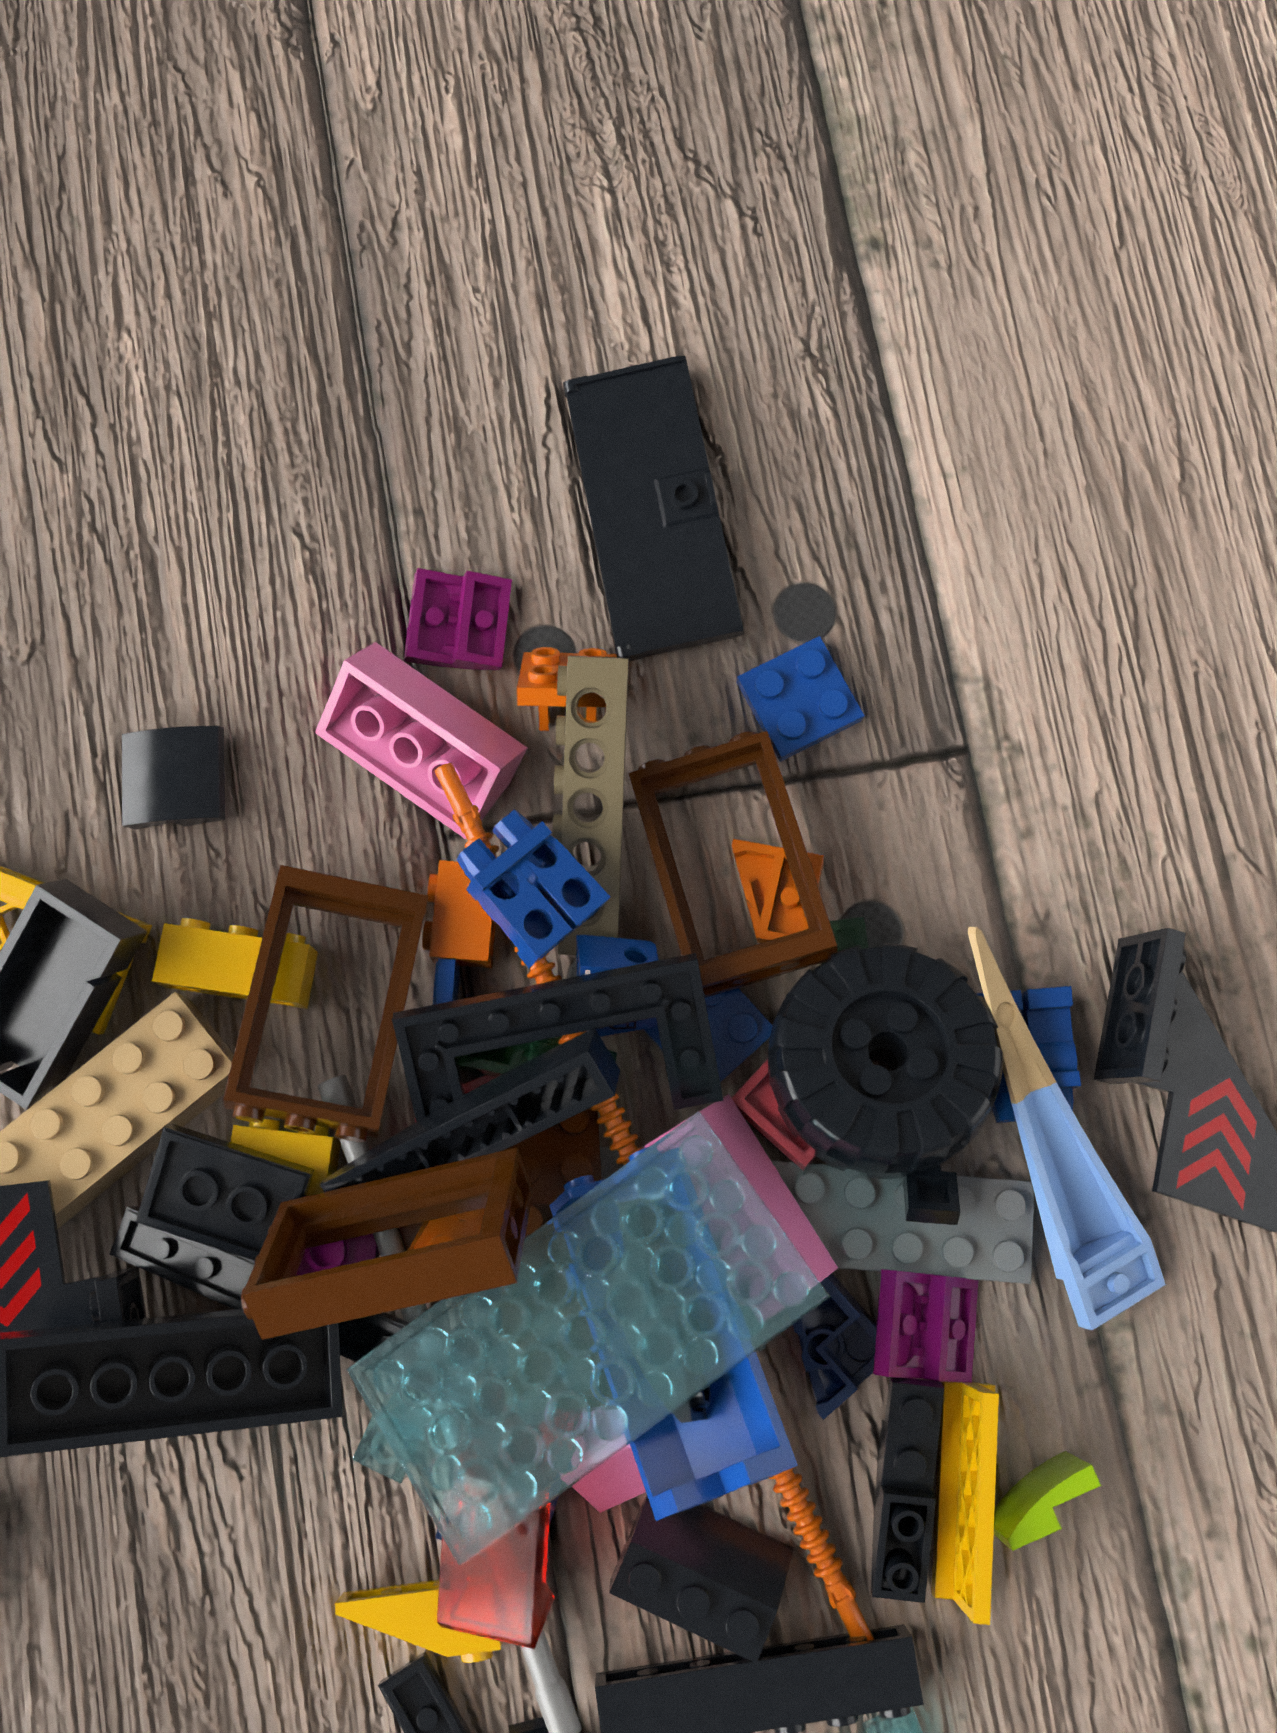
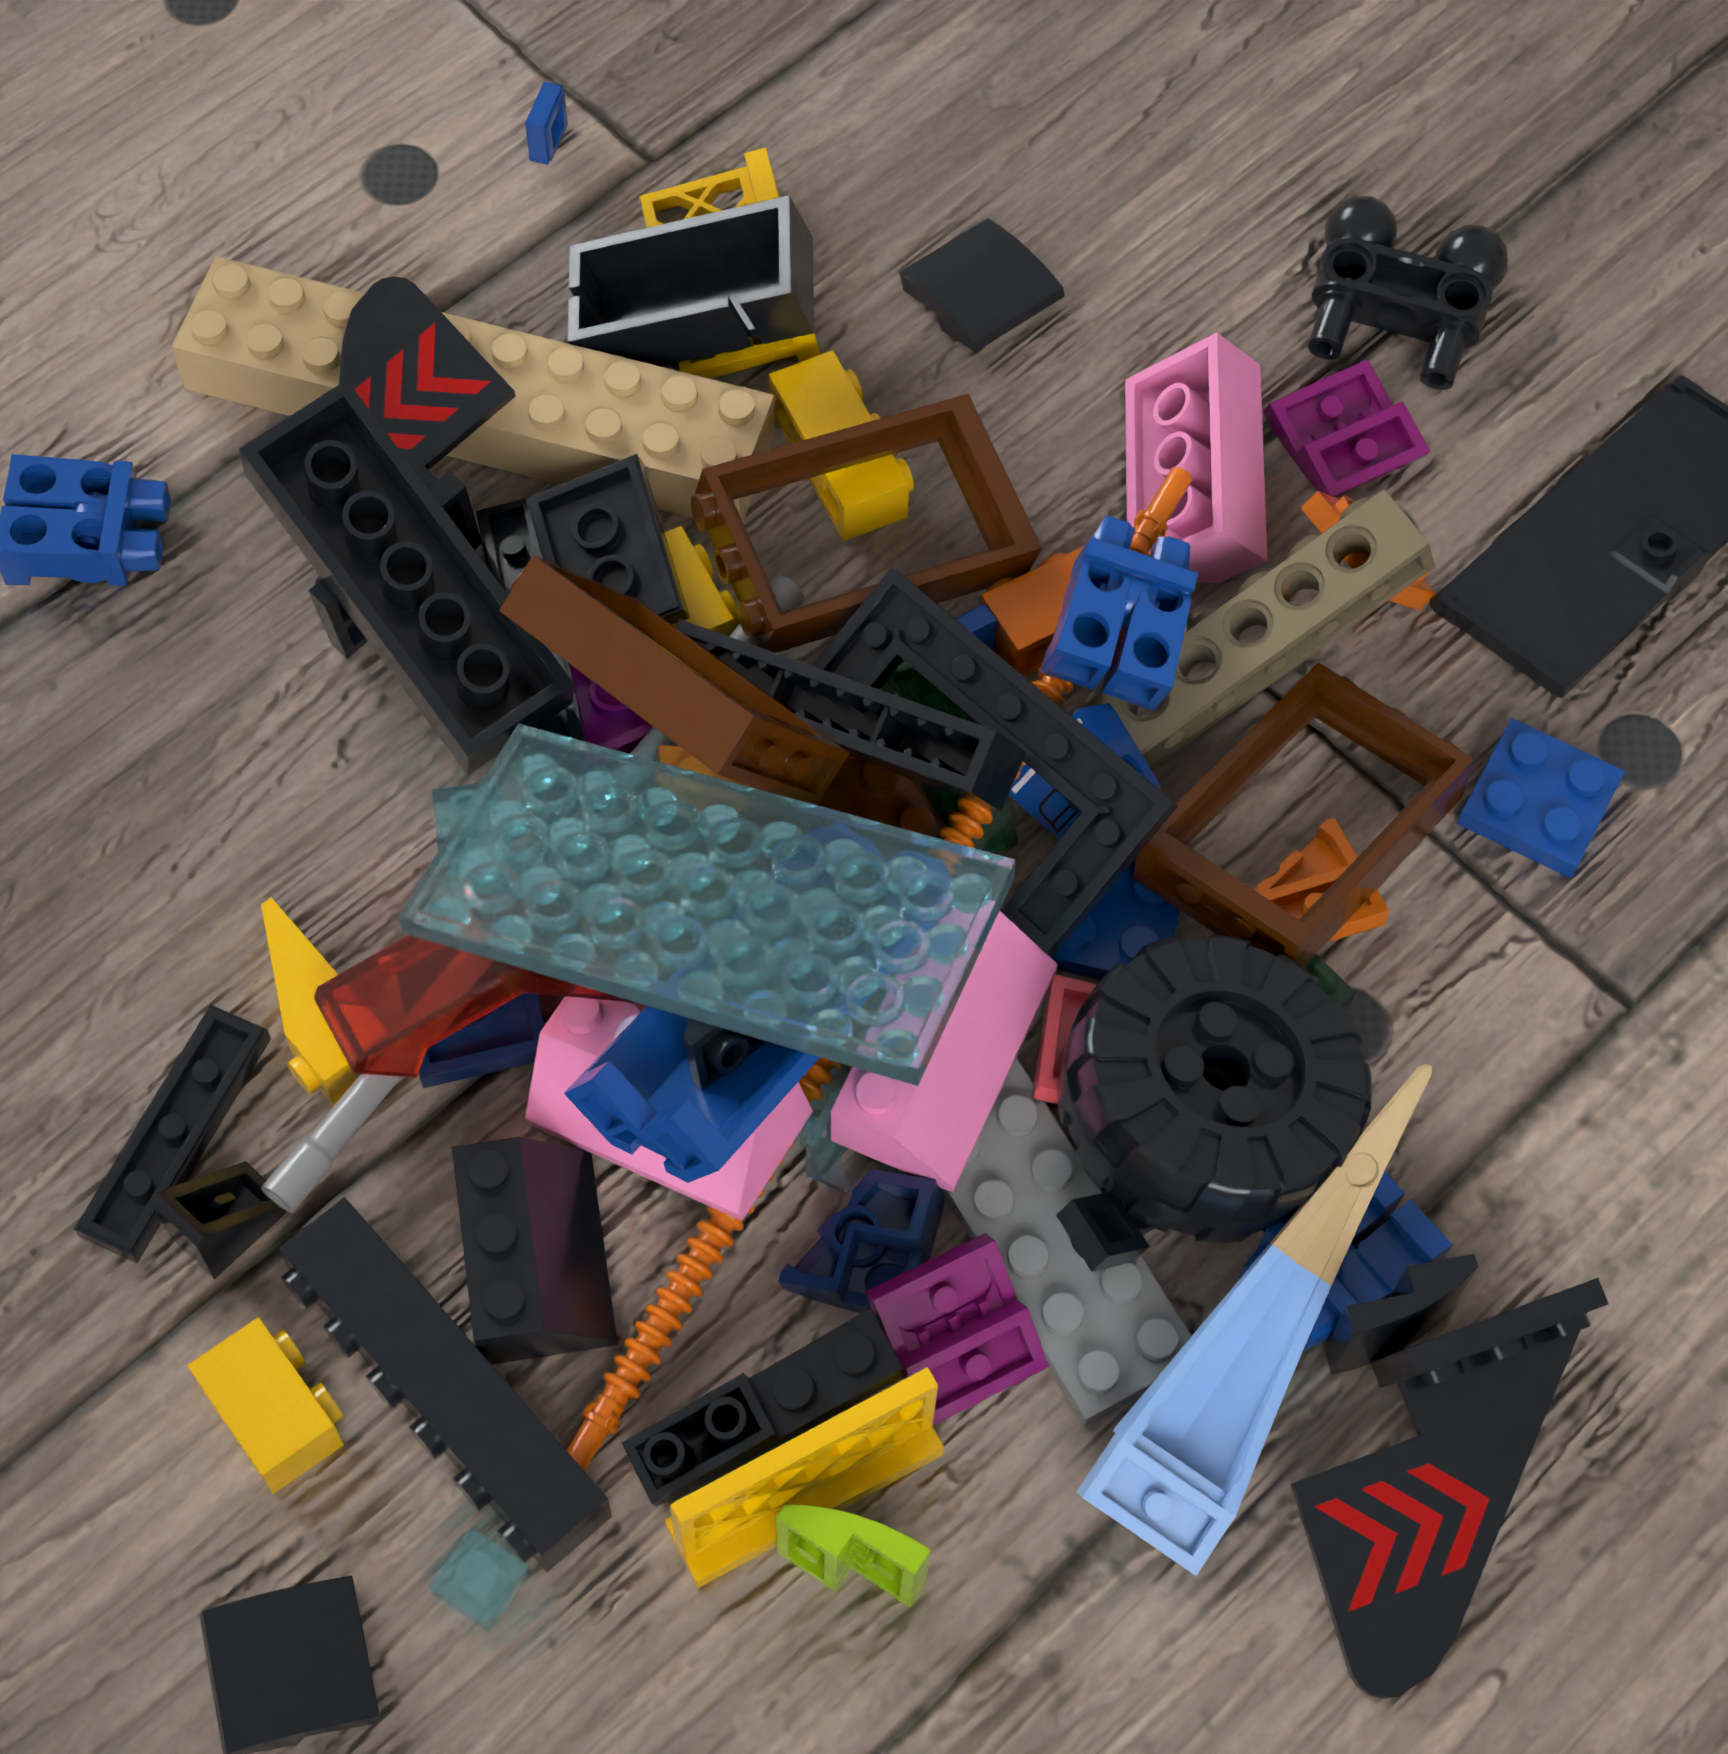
camera: 55 degrees right, 15 degrees down
(381, 504) = (1404, 289): none -> black piece
(1100, 1041) = (1391, 1324): none -> black slope

